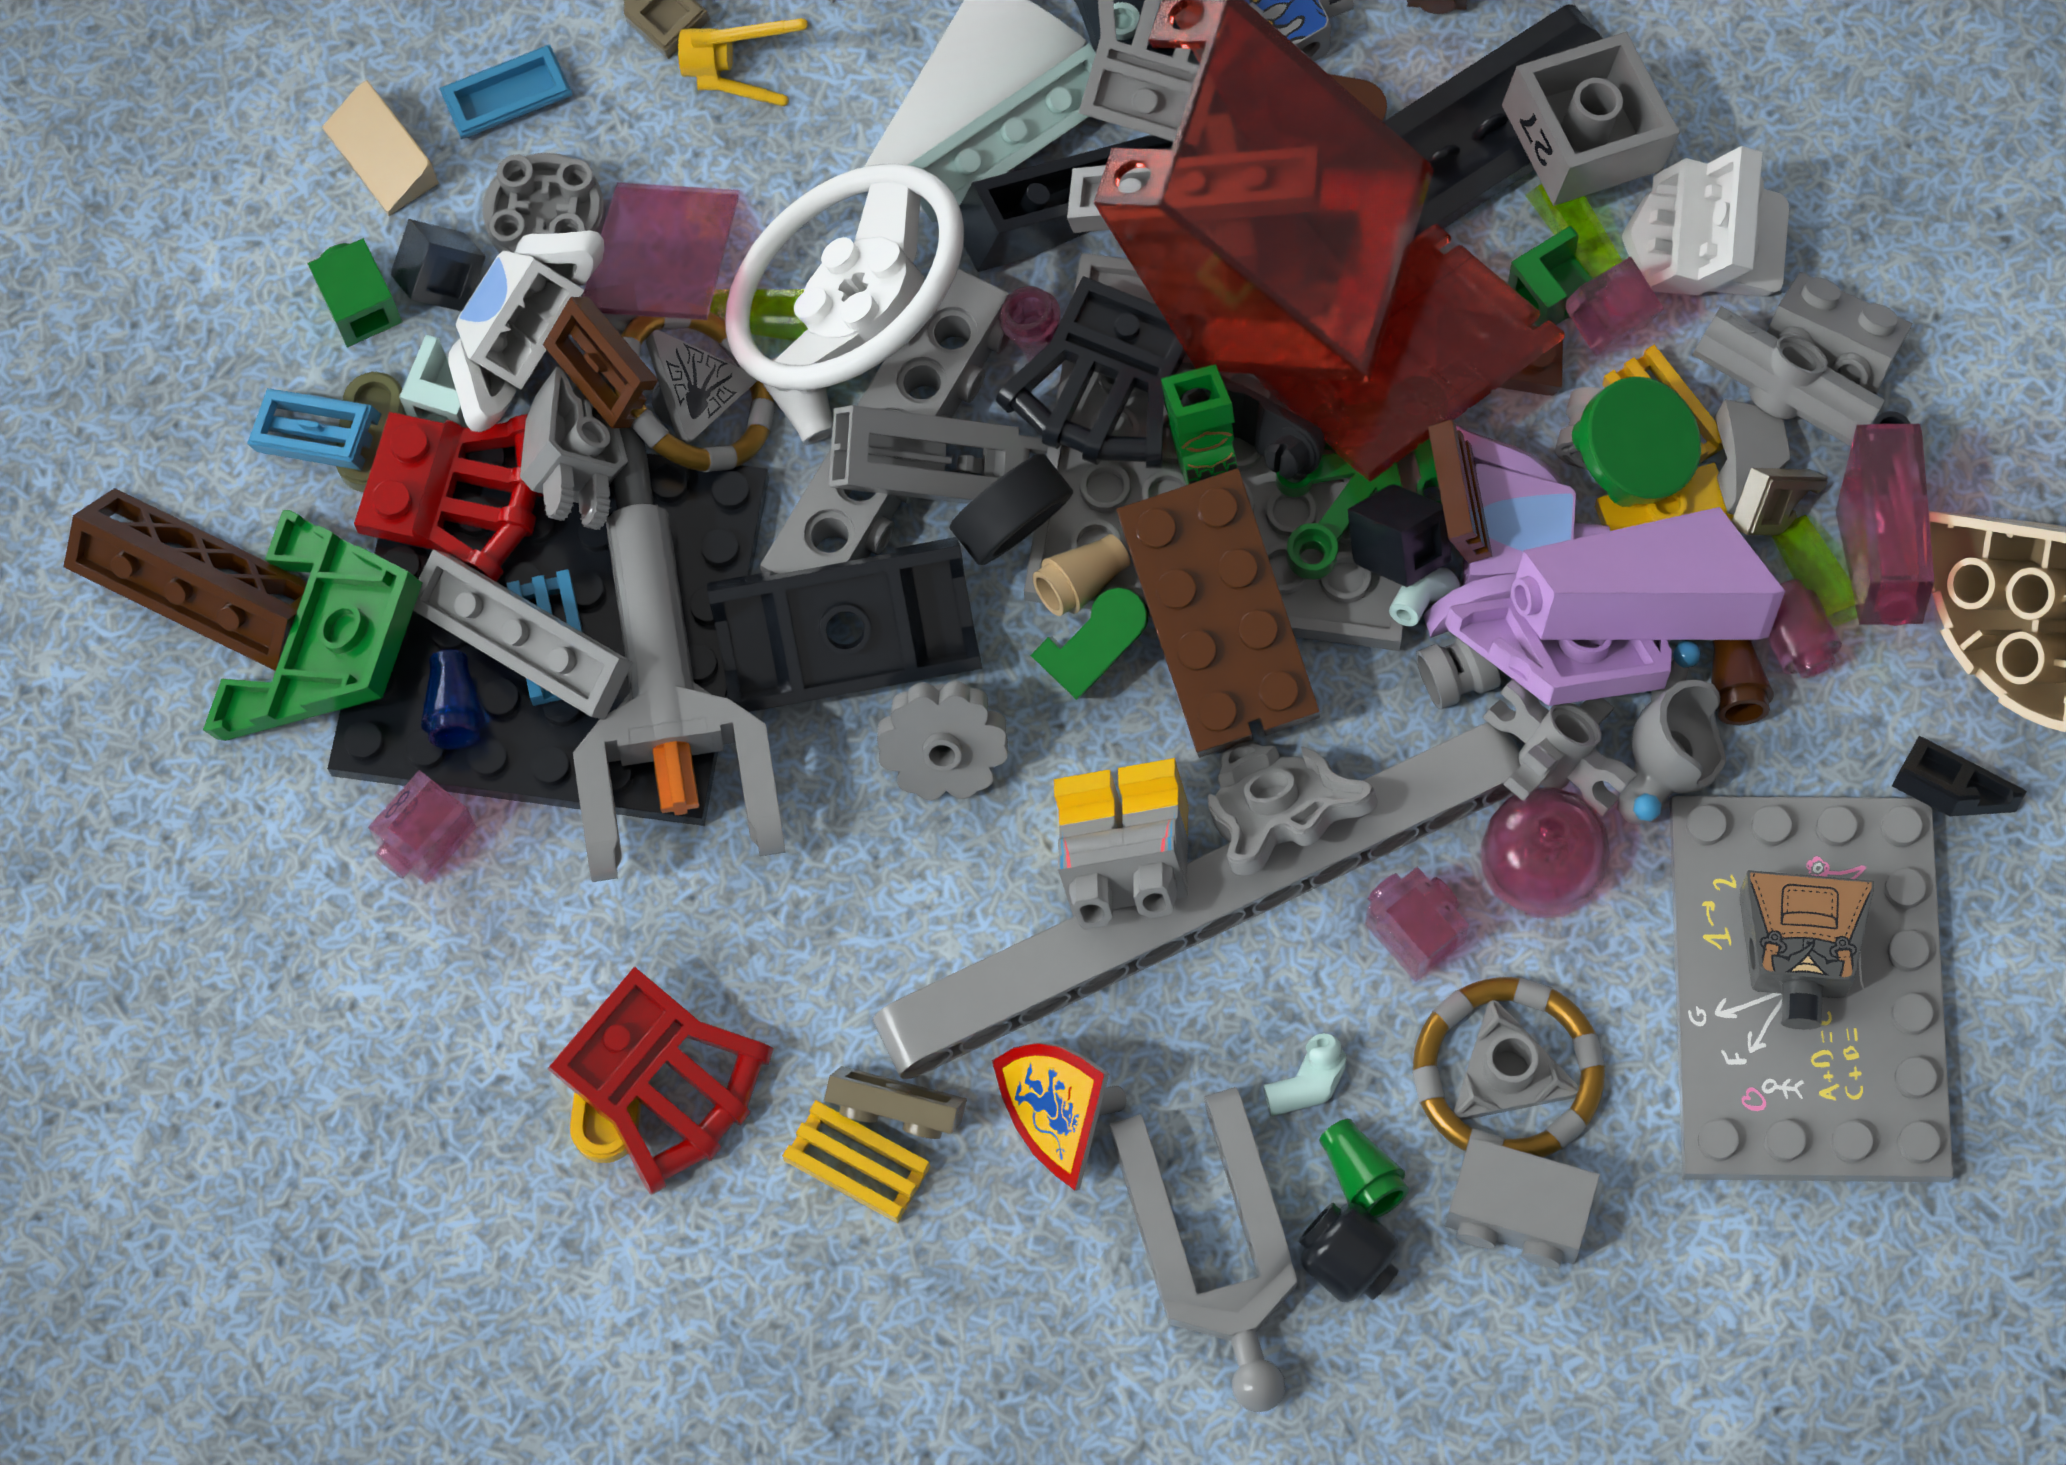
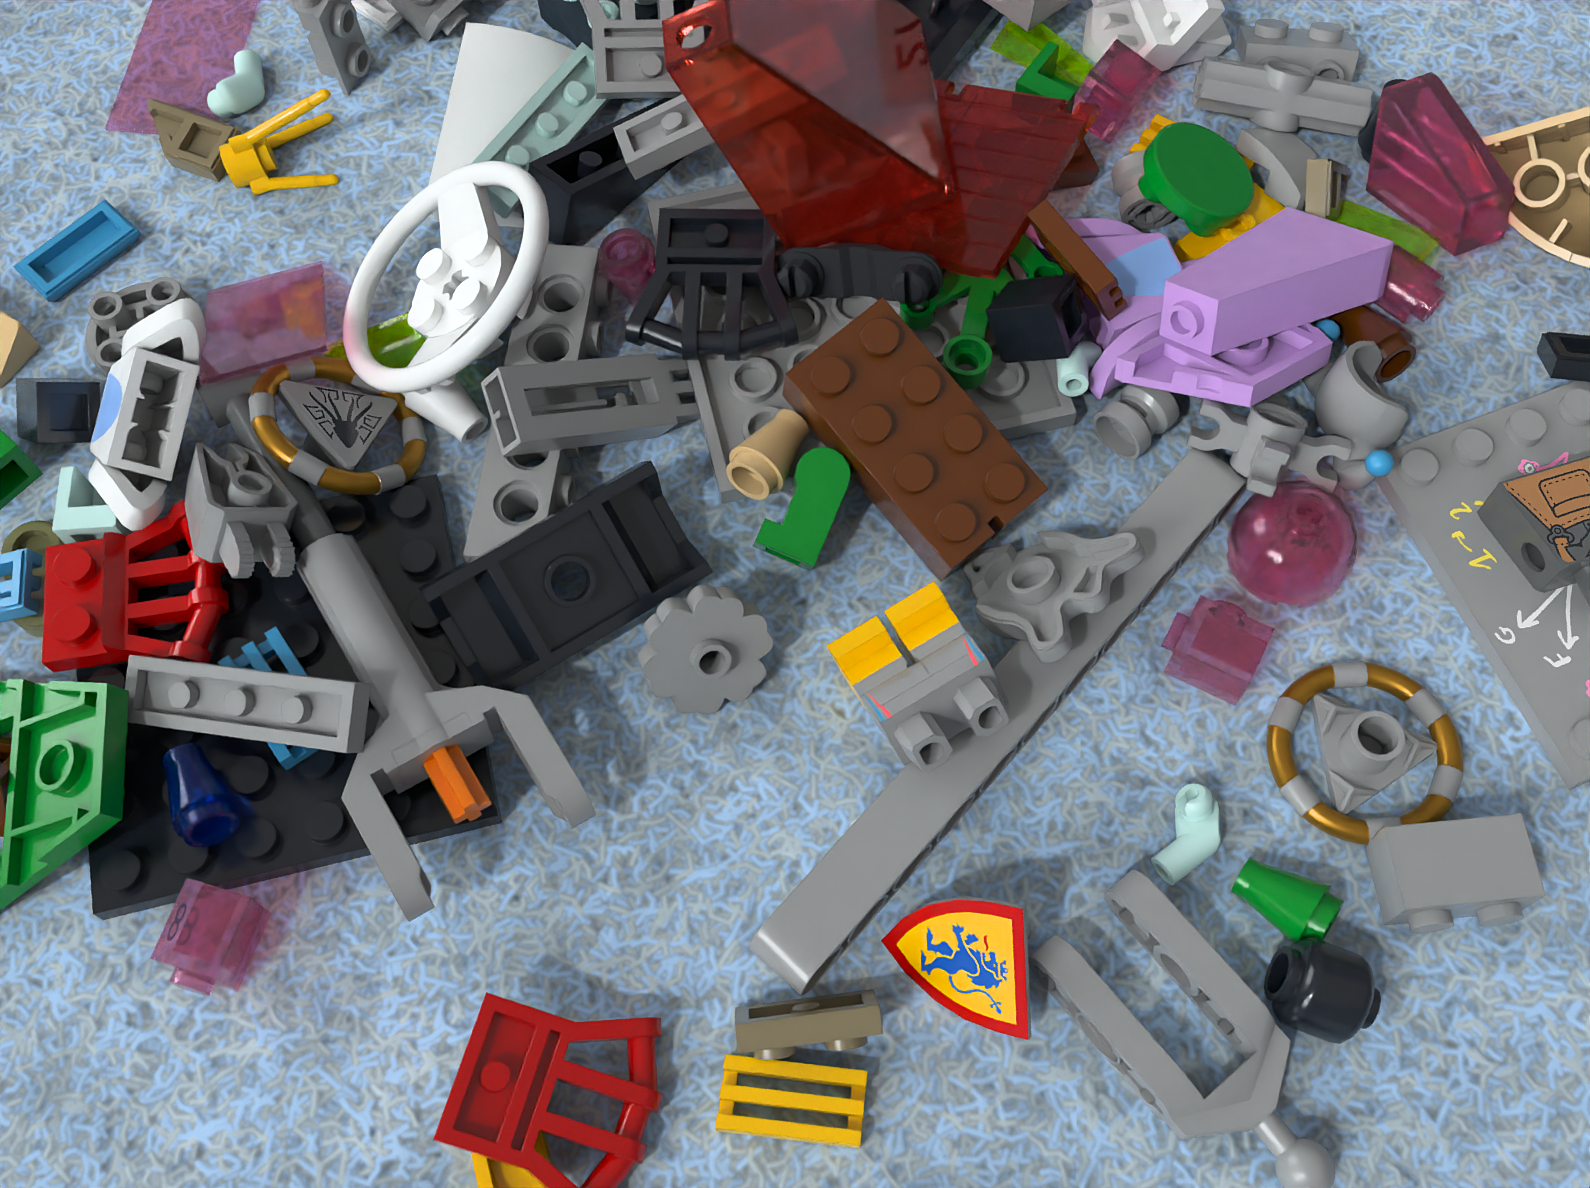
camera: 25 degrees left, 5 degrees down
(604, 353) = (267, 458): reddish brown tile -> none
(1011, 509) = (683, 414): black tyre -> none
(1201, 430) = (826, 286): green leg -> none

